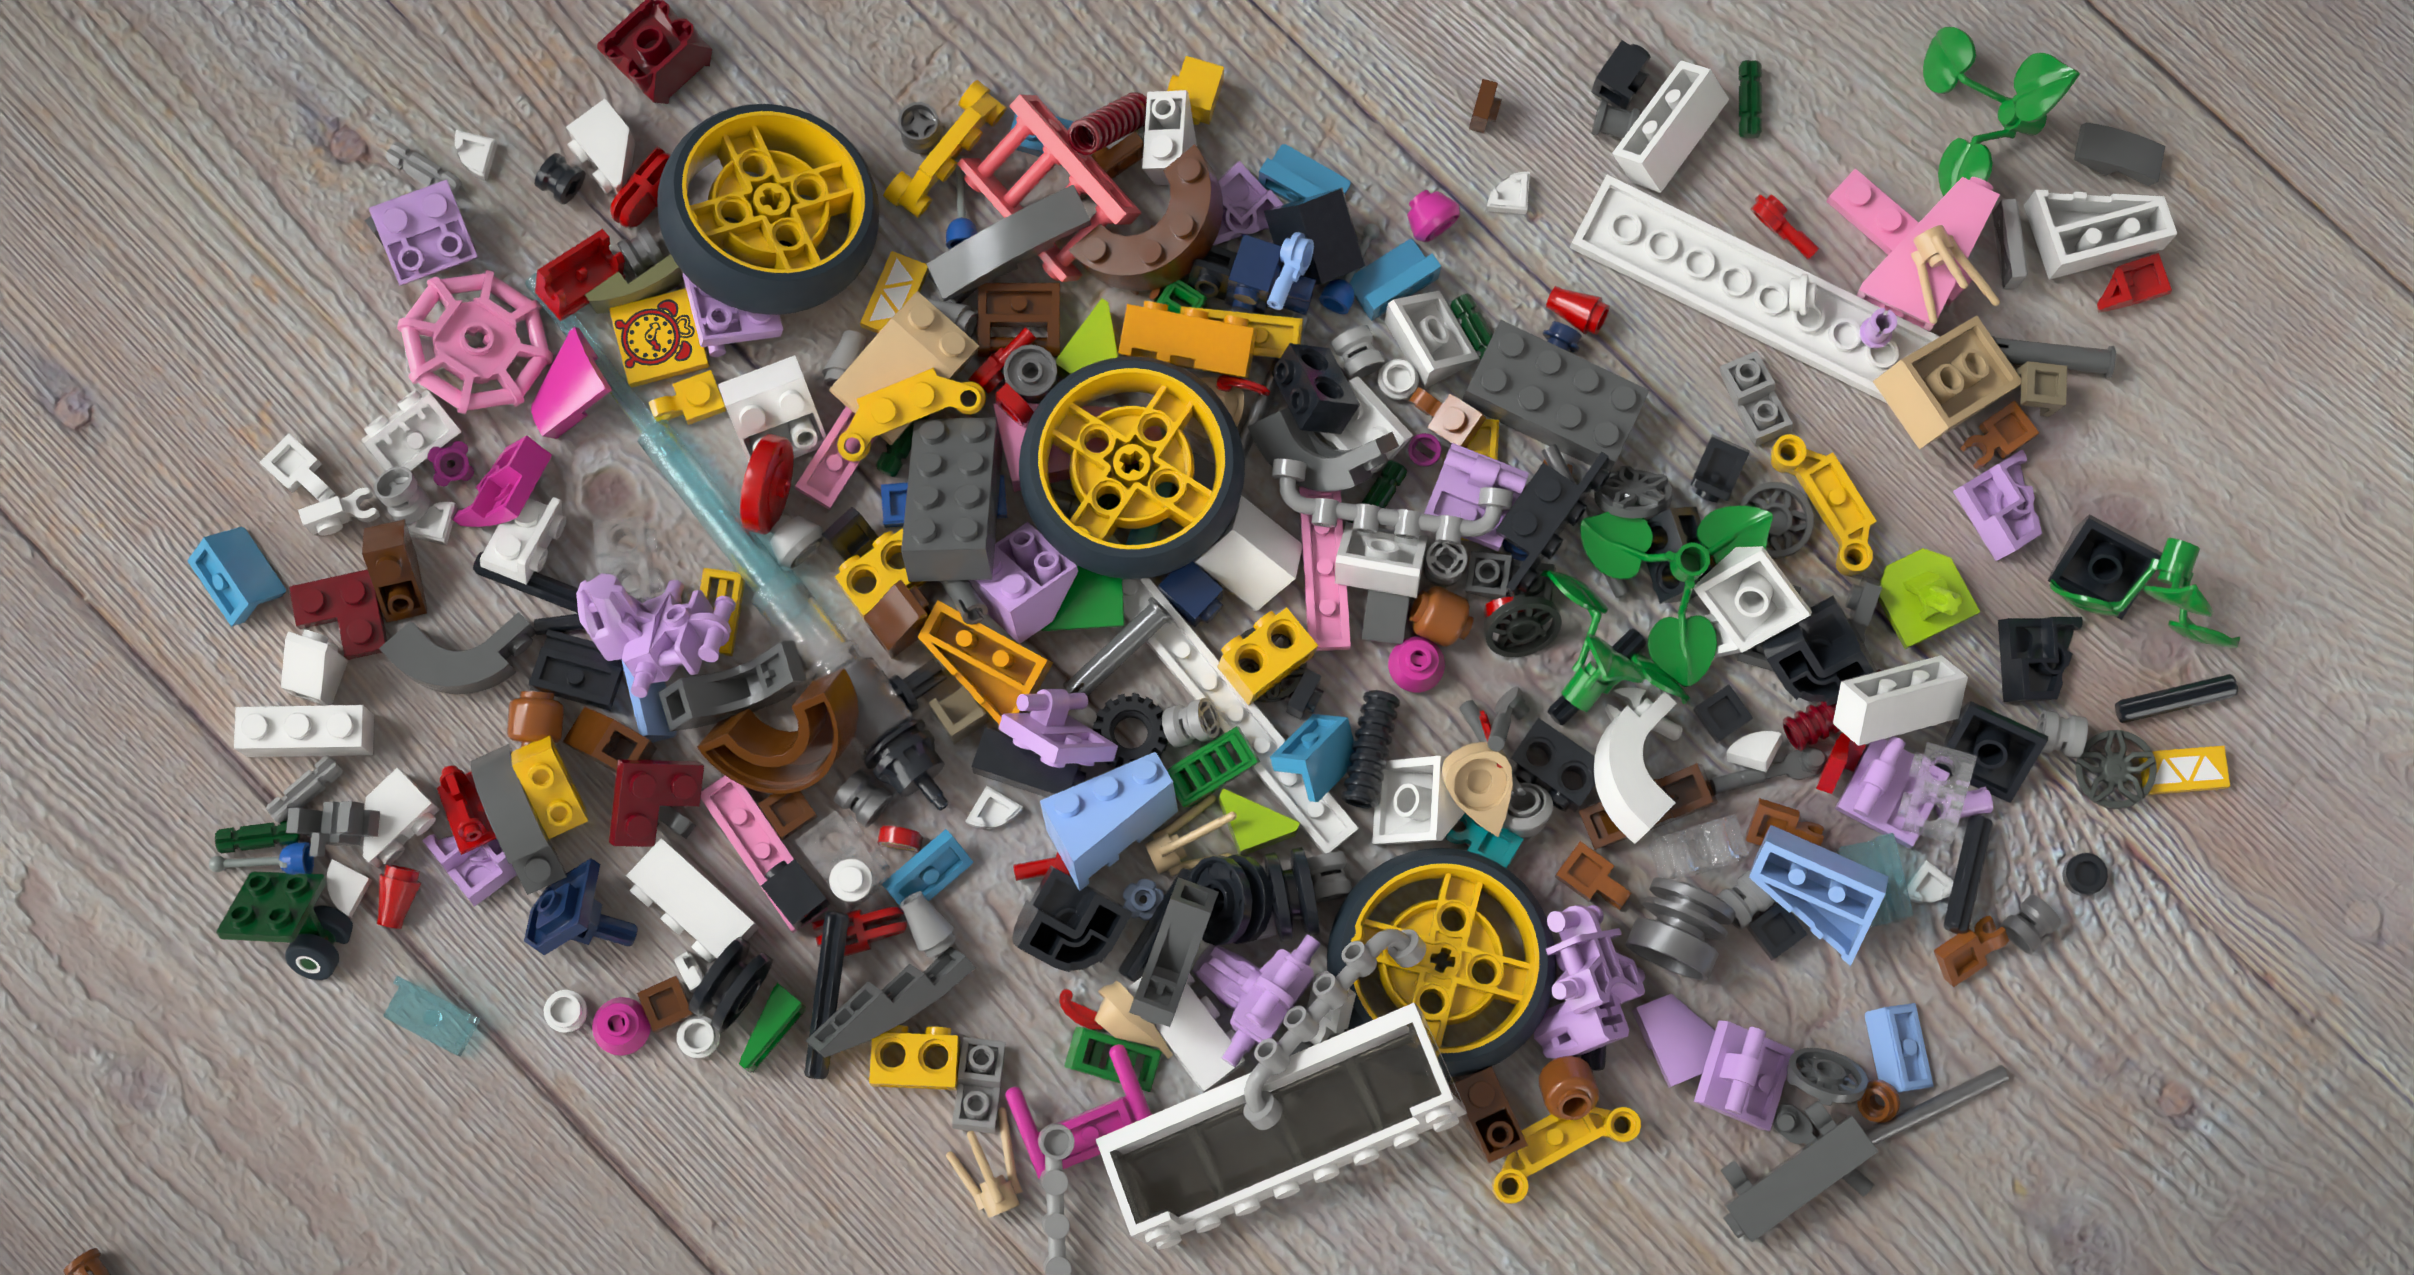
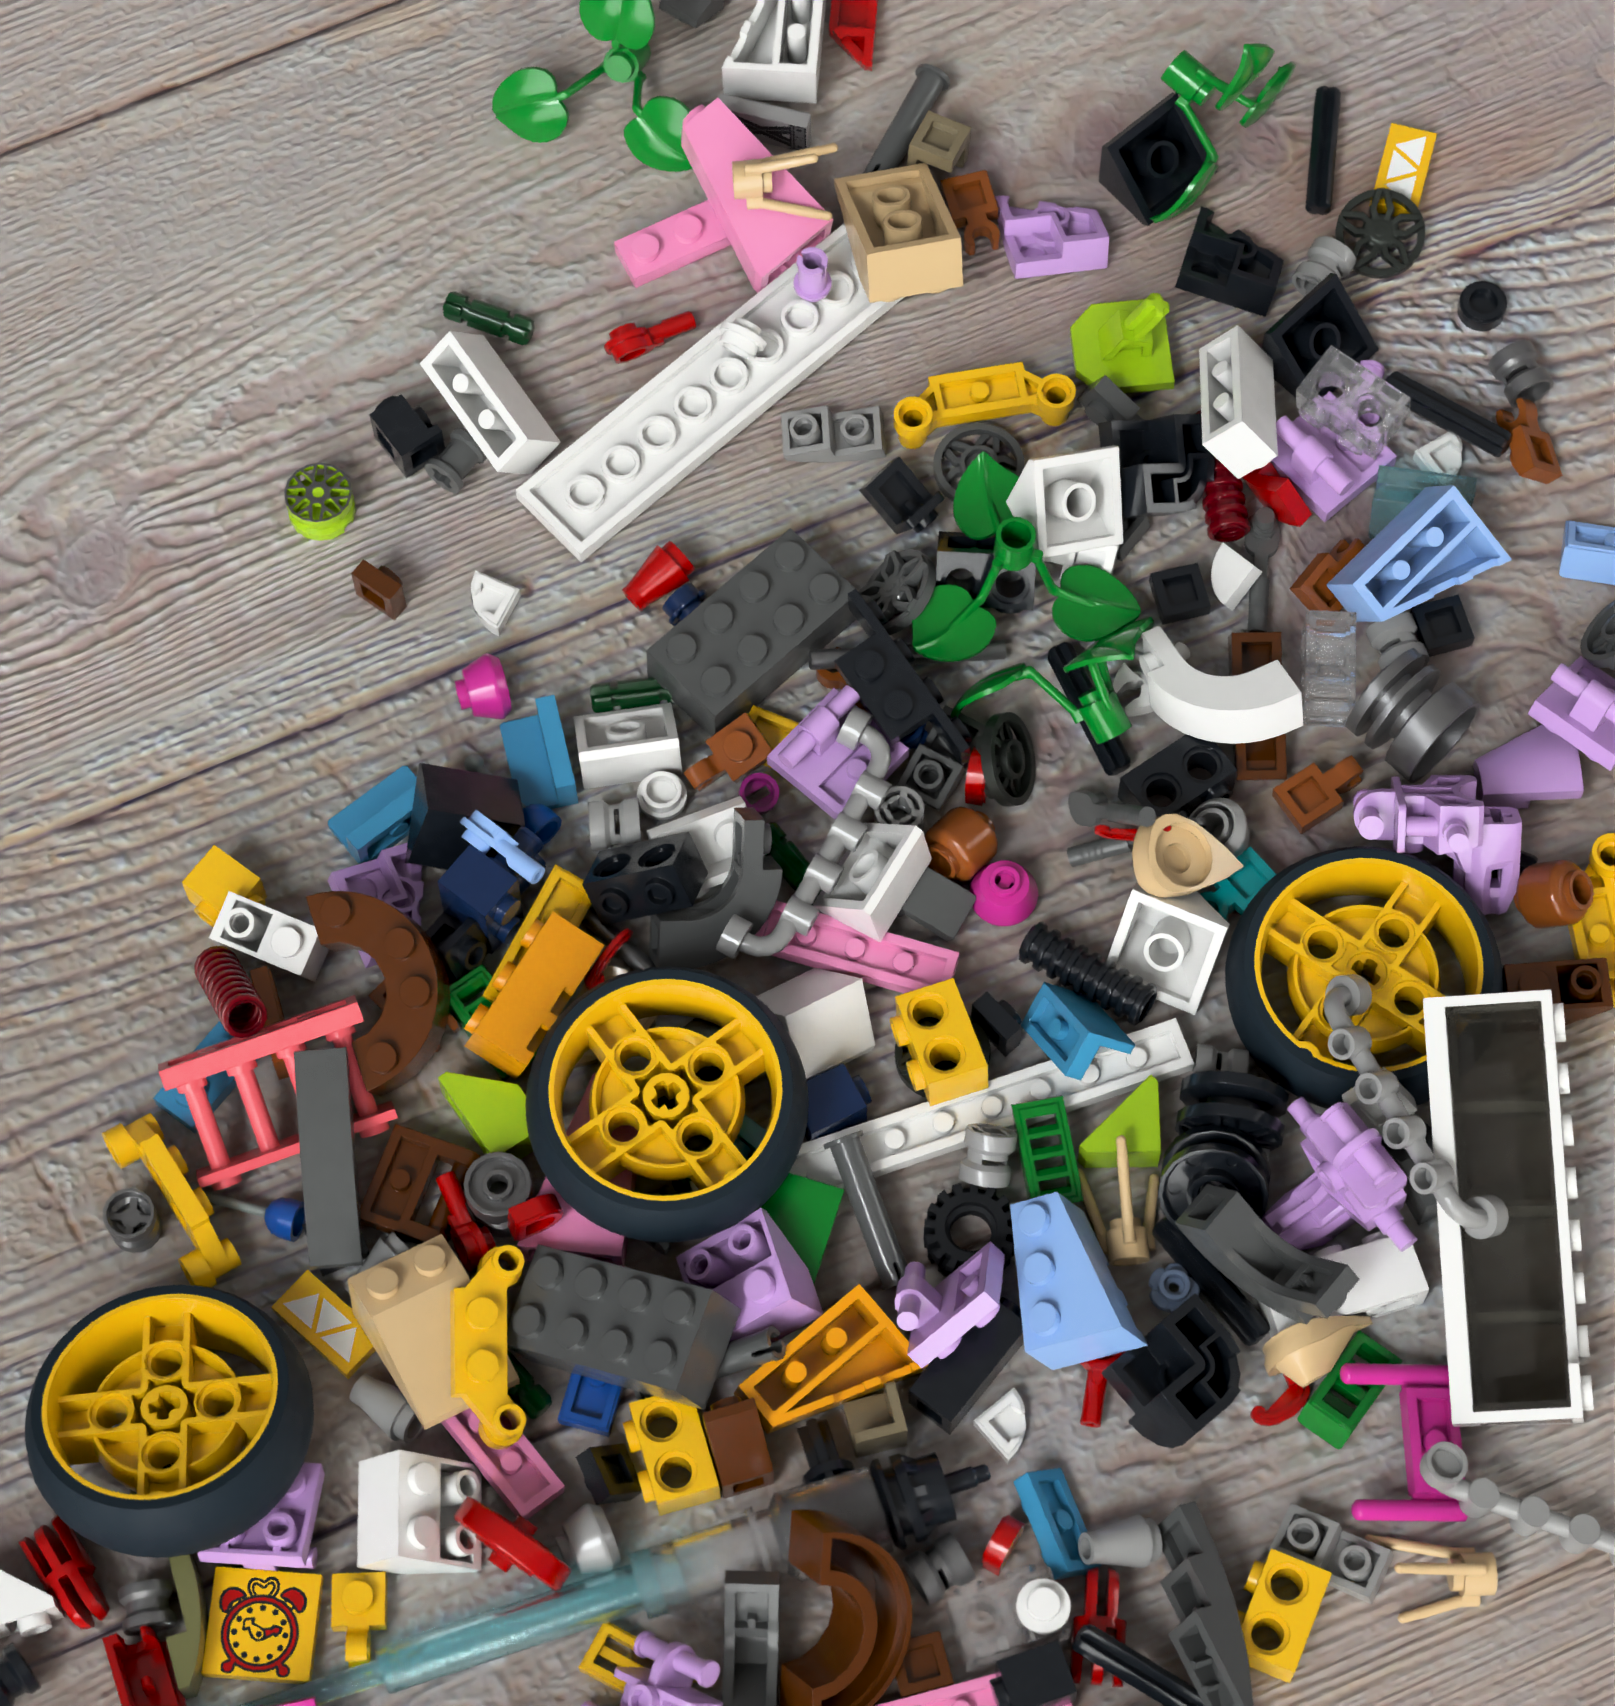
camera: 65 degrees left, 10 degrees down
(1540, 35) = (320, 503): none -> lime wheel

